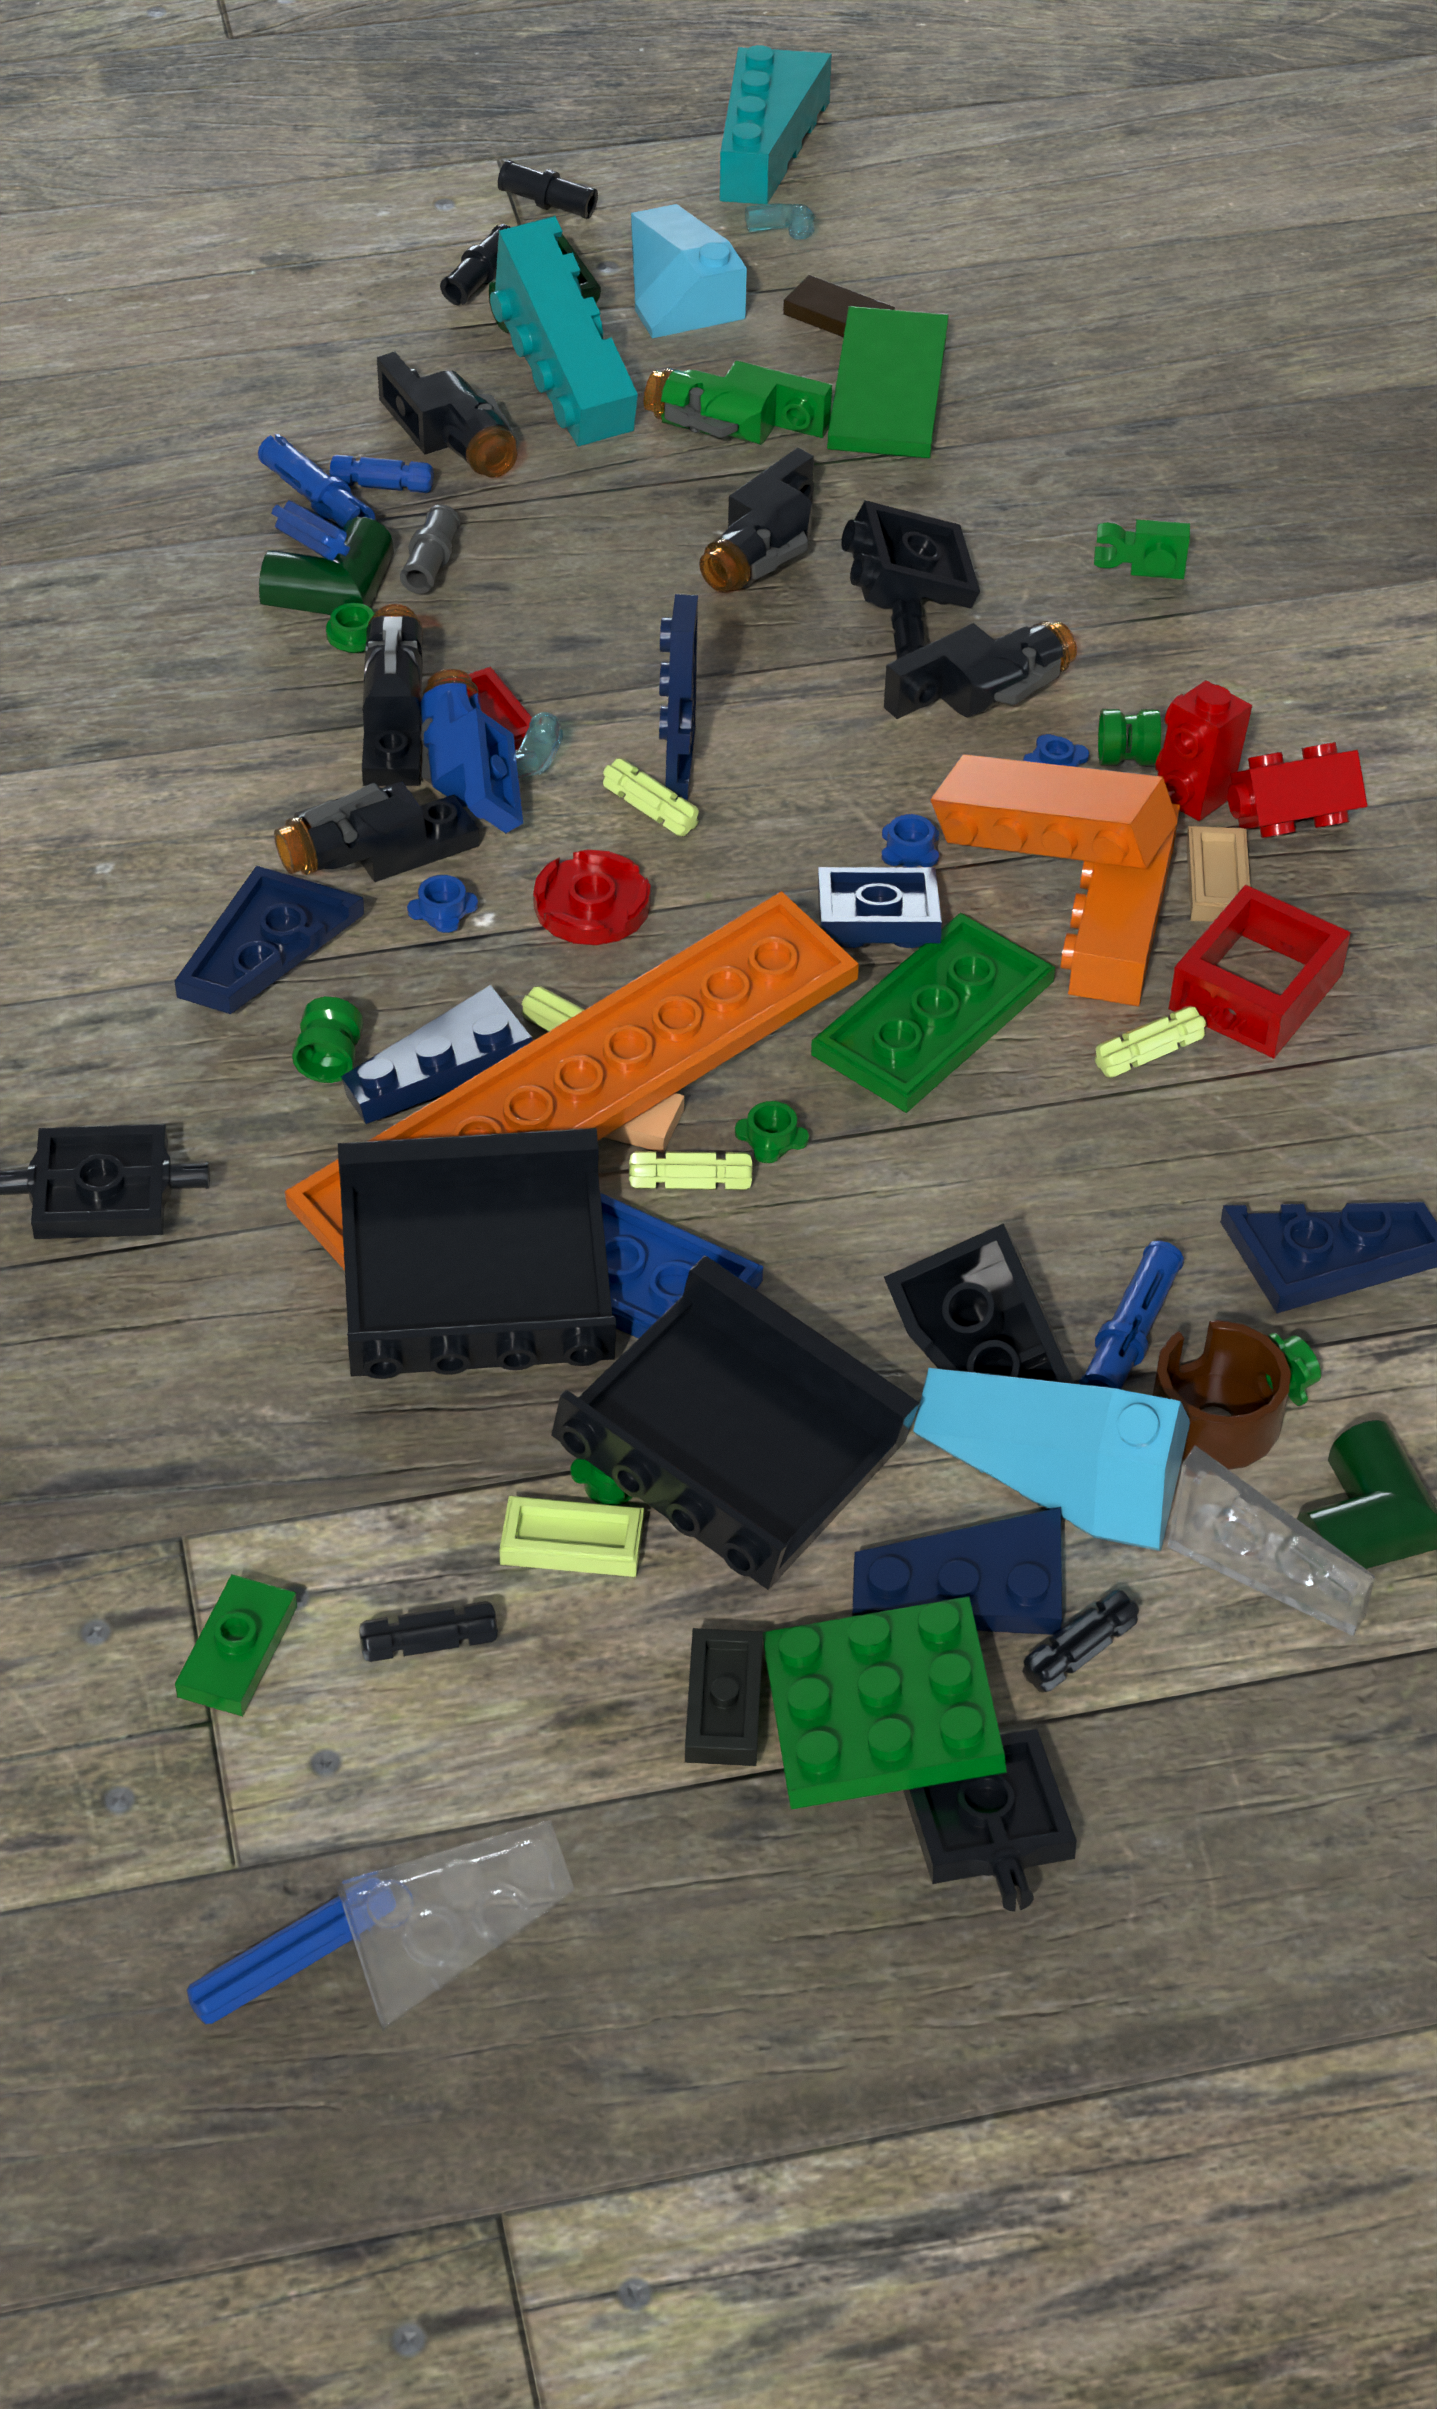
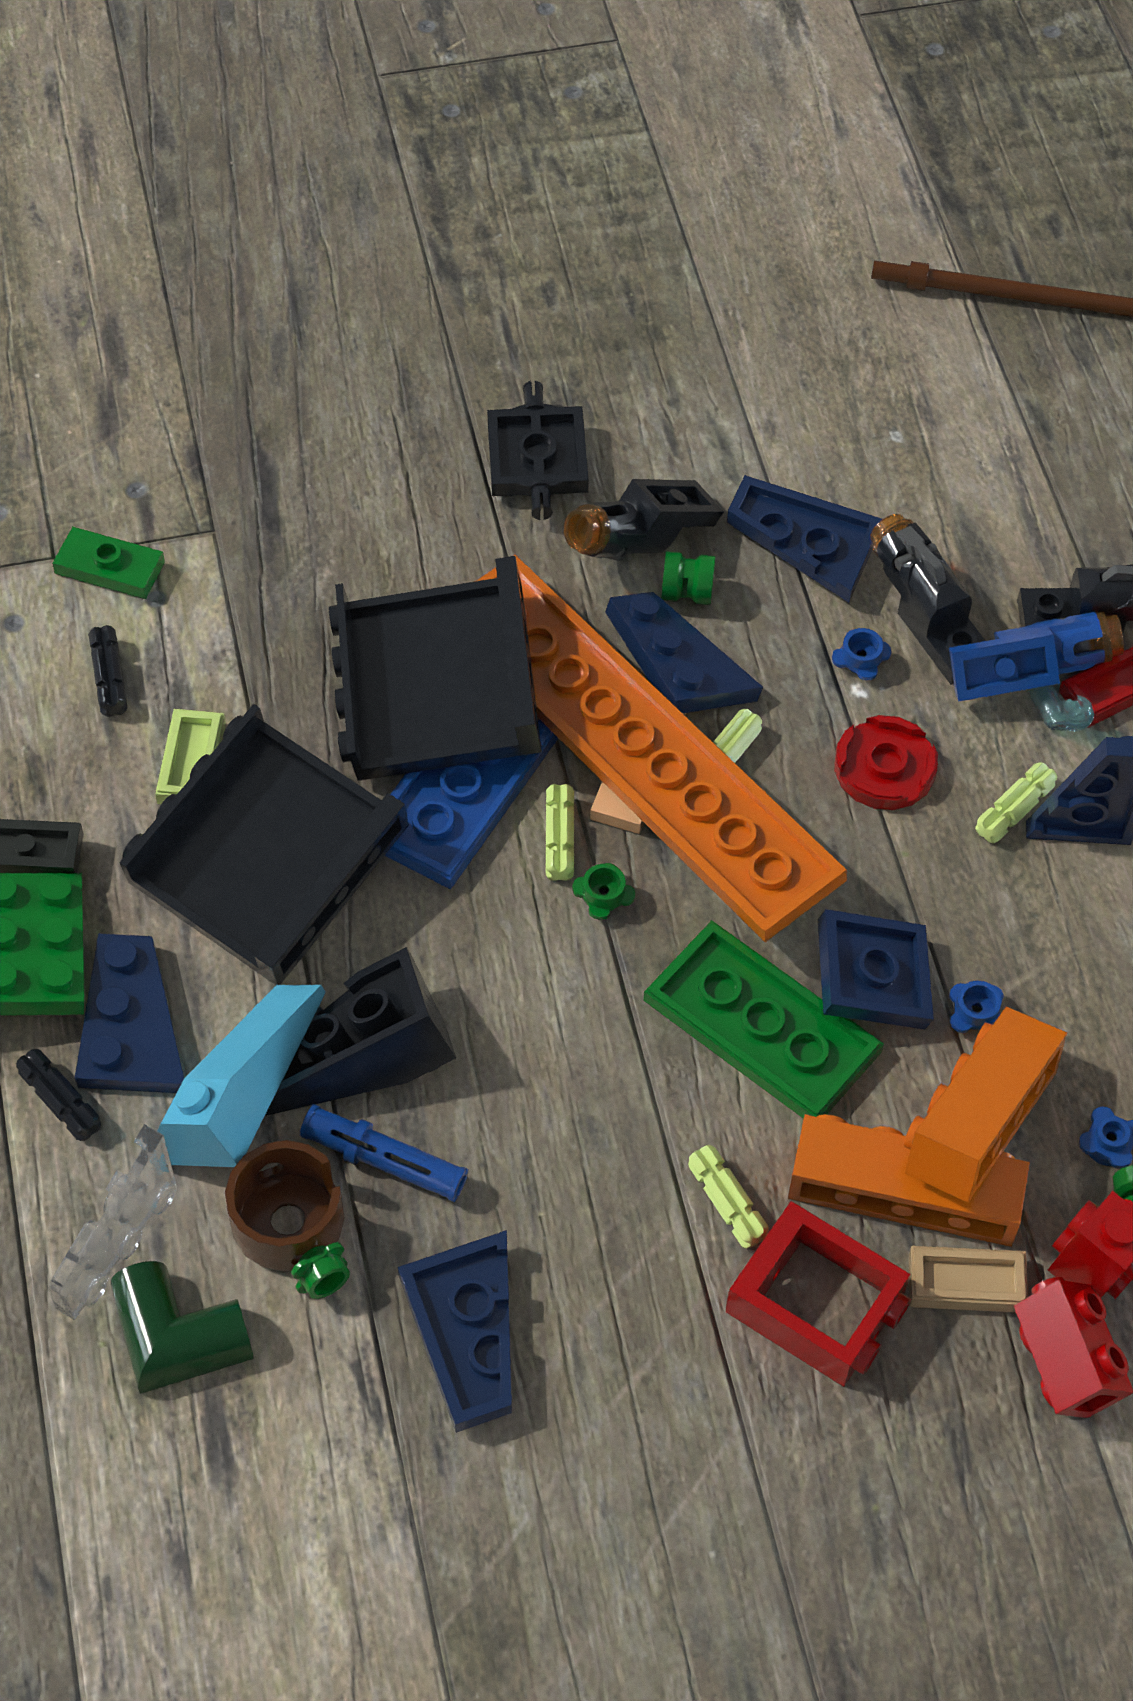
camera: 90 degrees right, 10 degrees up
(246, 1066) = (642, 519): none -> black plate

